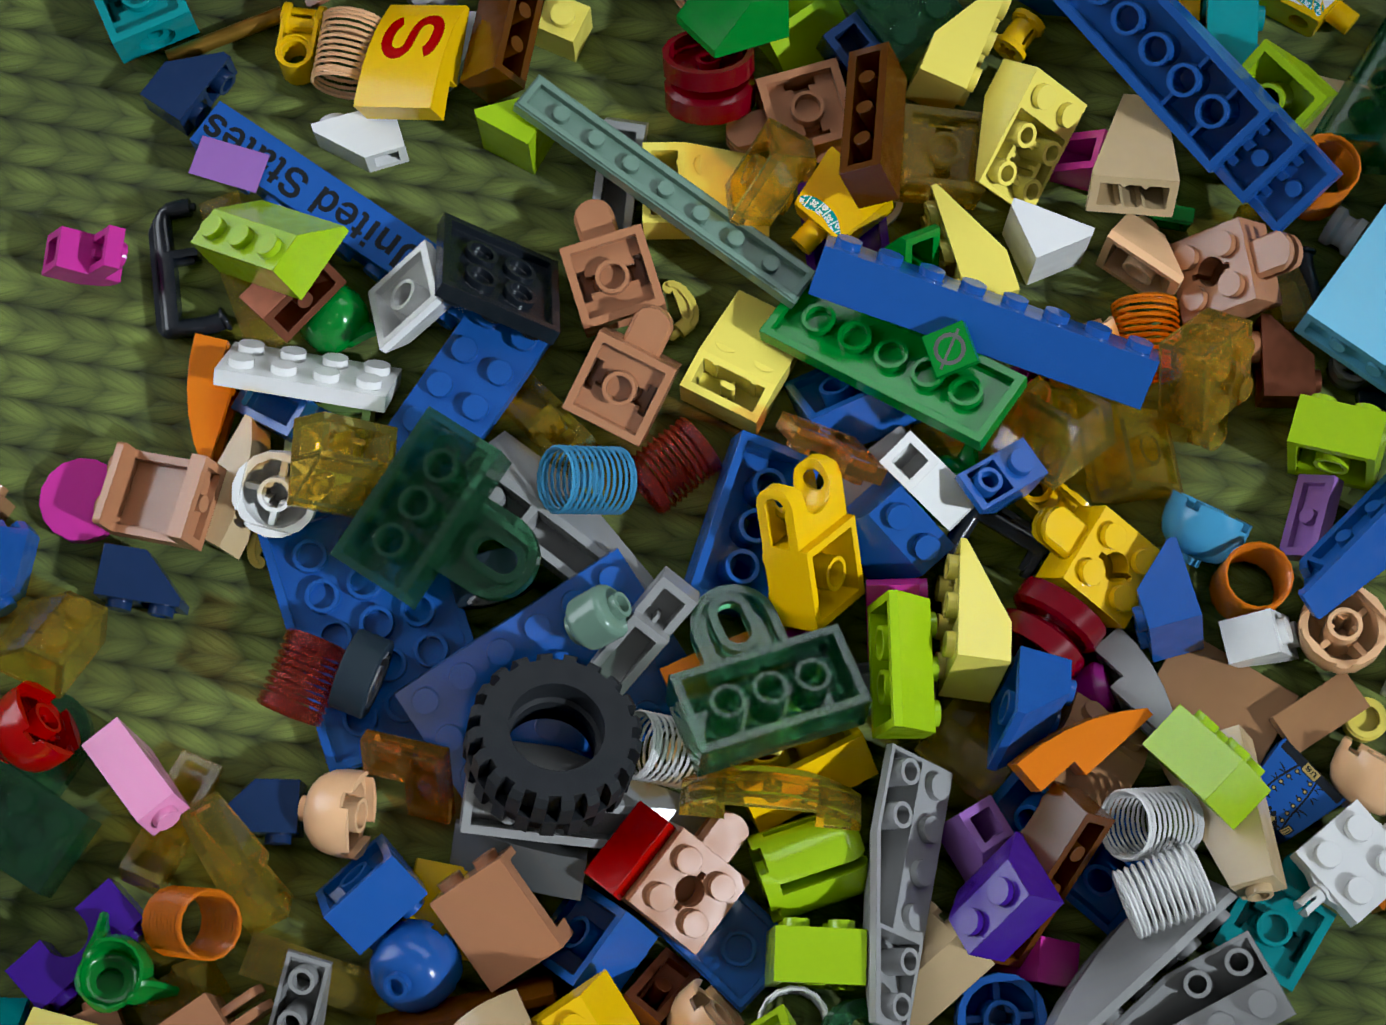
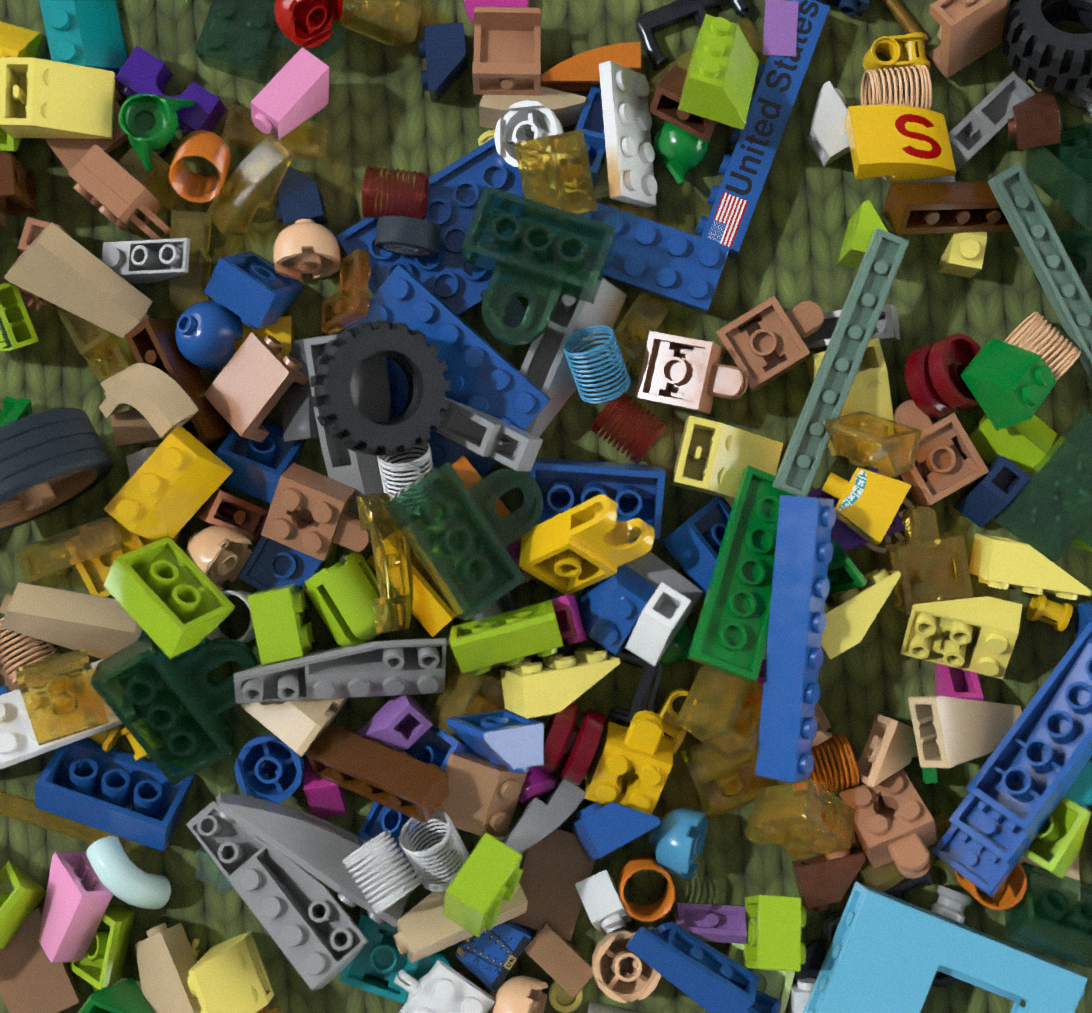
camera: 75 degrees right, 10 degrees up
(405, 299) = (708, 195): white slope -> none
(497, 279) = (736, 254): black plate -> none
(597, 617) = (488, 398): sand green head -> none
(629, 850) = (322, 467): red tile -> none
(687, 307) = (760, 407): light yellow piece -> none
(852, 457) = (670, 547): clear orange plate -> none
(873, 125) = (935, 513): reddish brown brick -> none
(951, 349) = (762, 617): green tile -> none
(1002, 477) = (673, 678): blue slope -> none
(1004, 902) = (347, 751): dark purple slope -> none
(1043, 240) = (880, 668): white slope -> none
(1076, 746) = (479, 783): orange slope -> none

